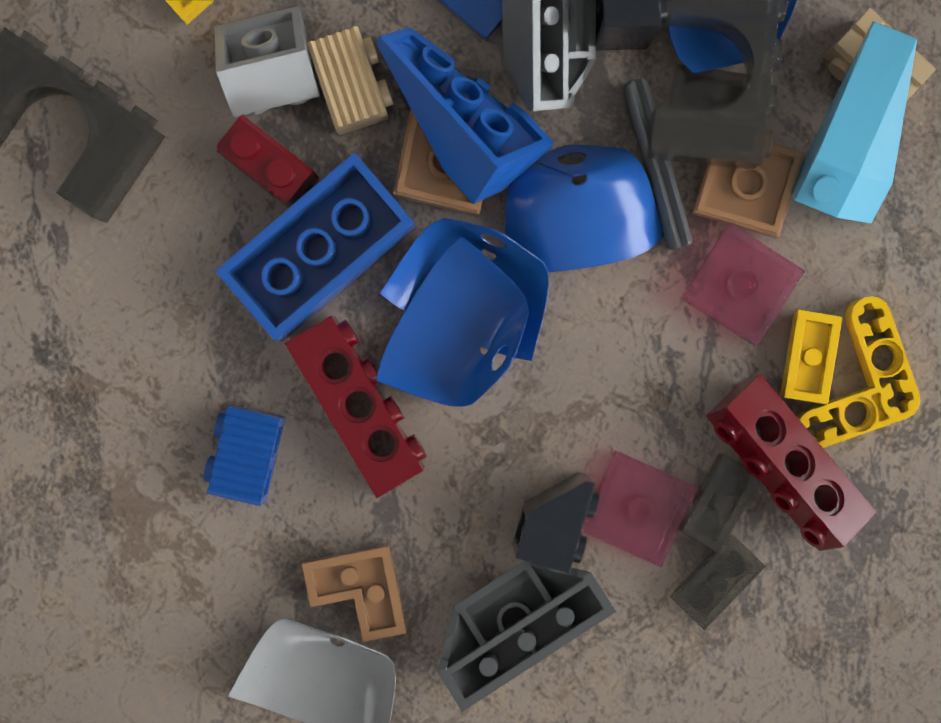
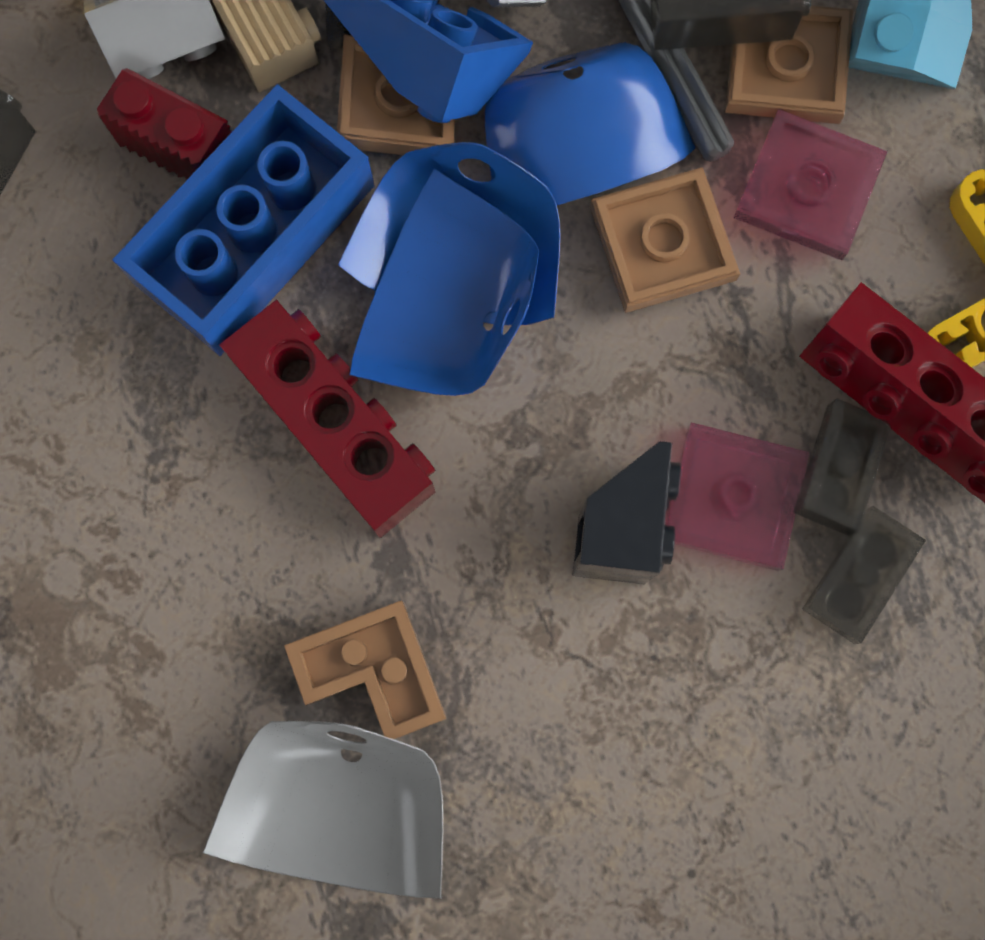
camera: 10 degrees left, 10 degrees down
(244, 454) = (185, 508): blue brick -> none
(515, 626) = (601, 675): dark grey wedge -> none
(625, 309) = (664, 240): none -> medium nougat plate
(811, 356) = (920, 258): yellow plate -> none

